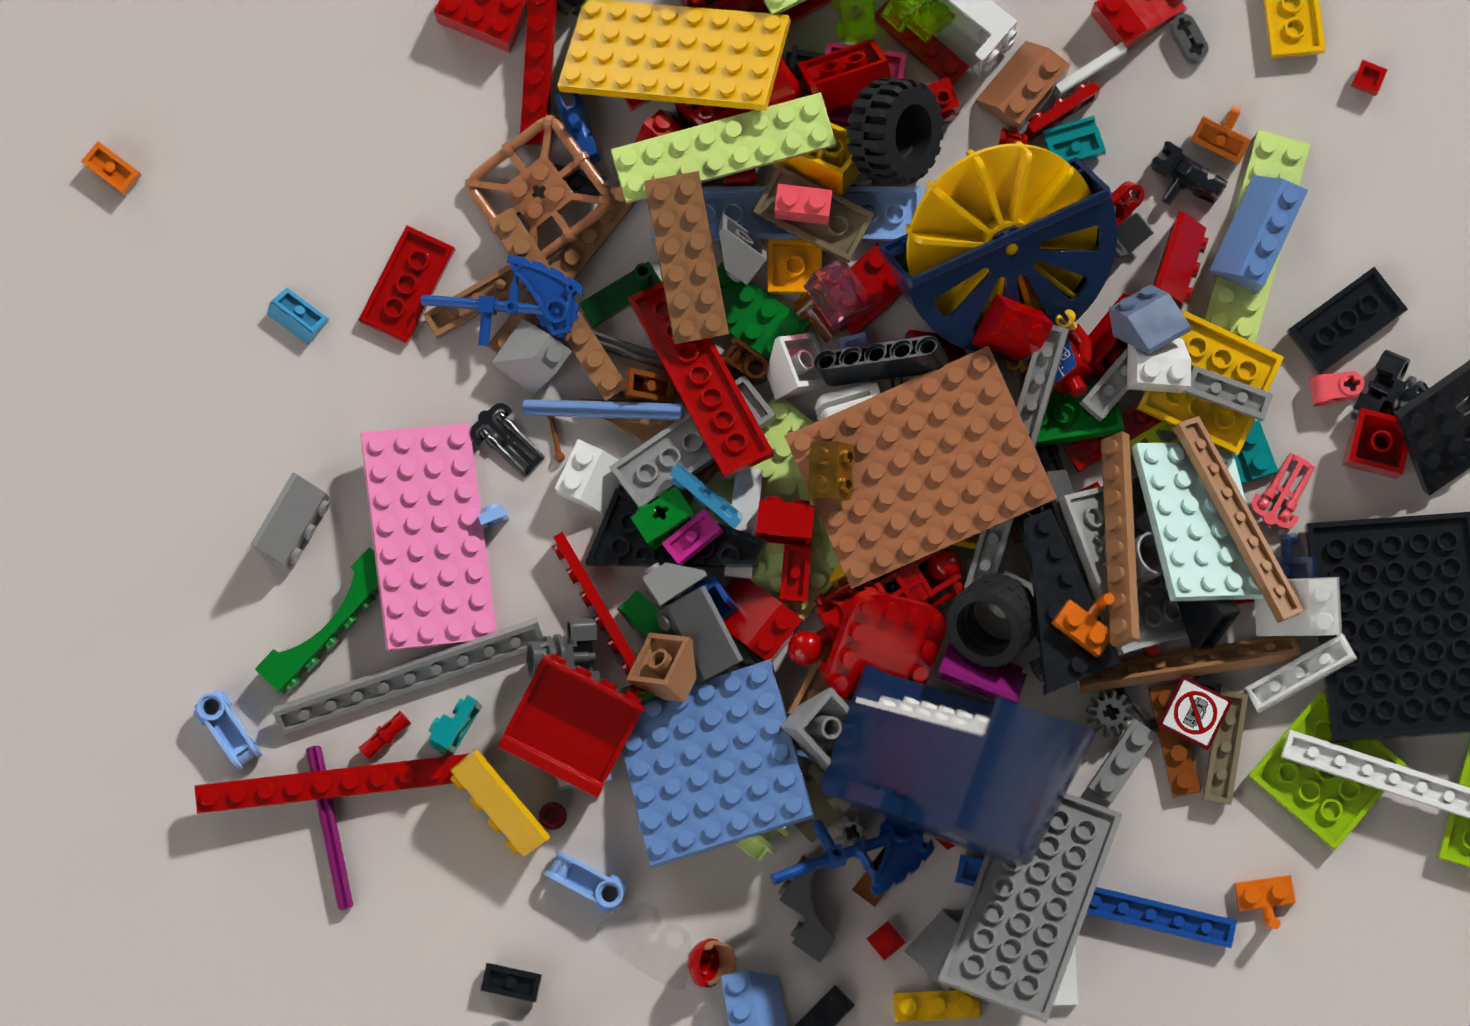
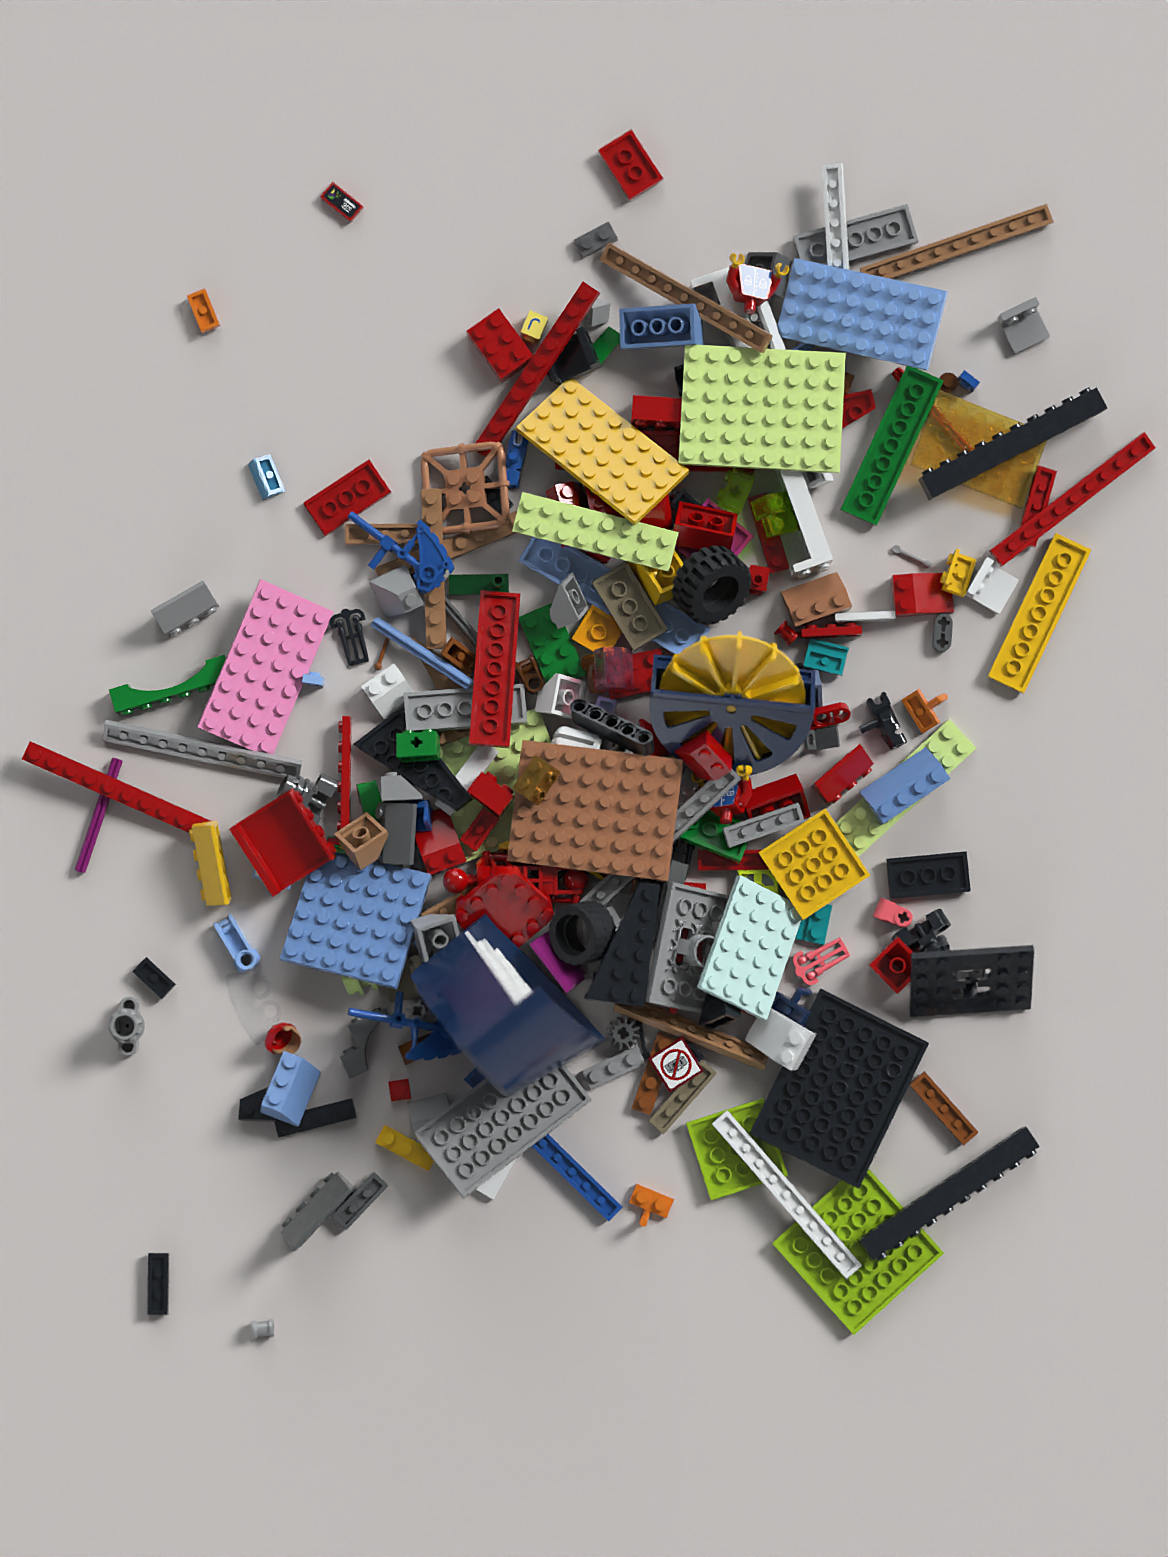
camera: 25 degrees right, 5 degrees up
(227, 729) = (70, 717): light blue piece -> none
(384, 735) = (166, 778): red pin -> none
(449, 732) = (205, 800): teal plate -> none
(552, 815) = (240, 890): dark red plate -> none
(686, 257) = (529, 589): medium nougat plate -> none
(692, 537) = (427, 769): dark pink plate -> none
(705, 496) = (451, 748): dark azure wing -> none
(803, 204) = (624, 597): coral brick -> none
(1084, 626) = (633, 970): orange plate -> none
(1120, 539) = (691, 929): medium nougat plate -> none
(1148, 319) = (795, 802): sand blue slope -> none
(1160, 371) = (786, 832): white slope -> none
(1229, 393) = (819, 878): light grey plate -> none
(1238, 519) = (774, 960): medium nougat plate -> none
(1300, 673) = (756, 1079): white tile -> none
(1369, 77) = (1041, 727): red plate -> none

